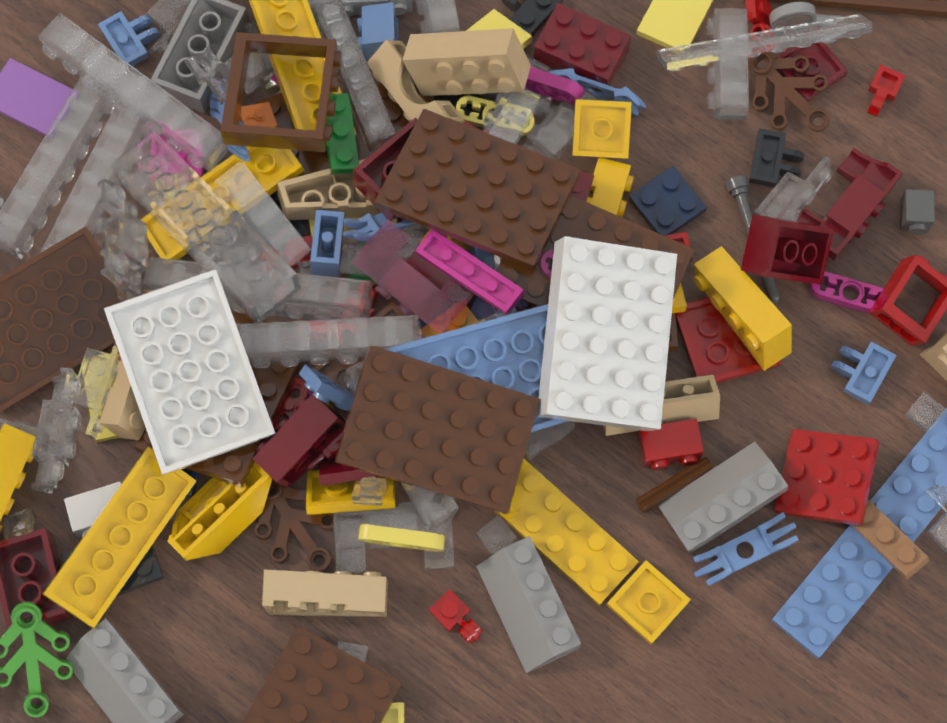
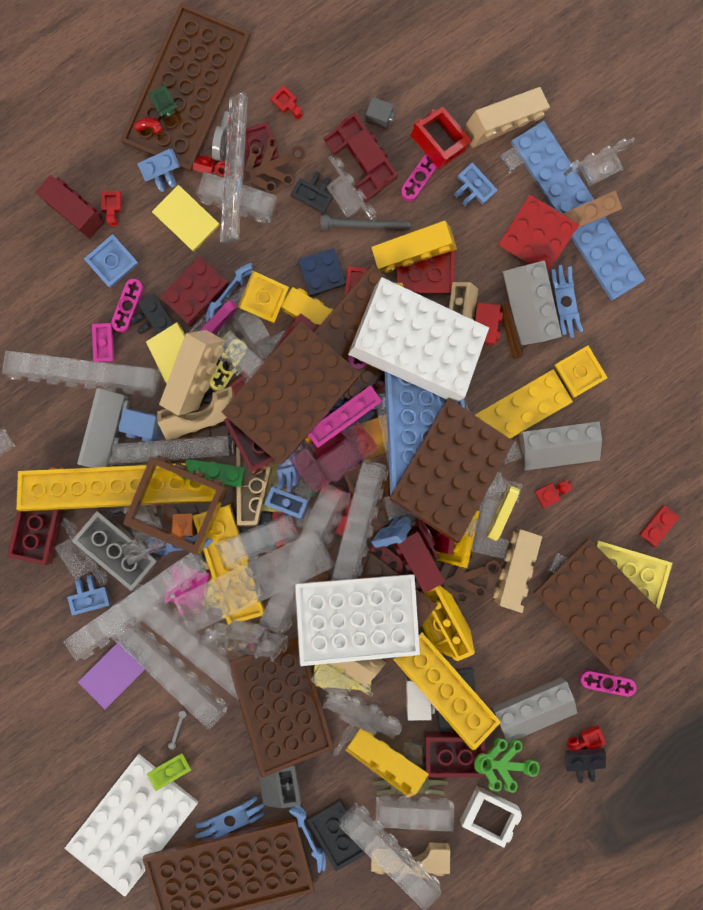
camera: 80 degrees left, 15 degrees up
(787, 249) = (388, 205): dark red brick -> none

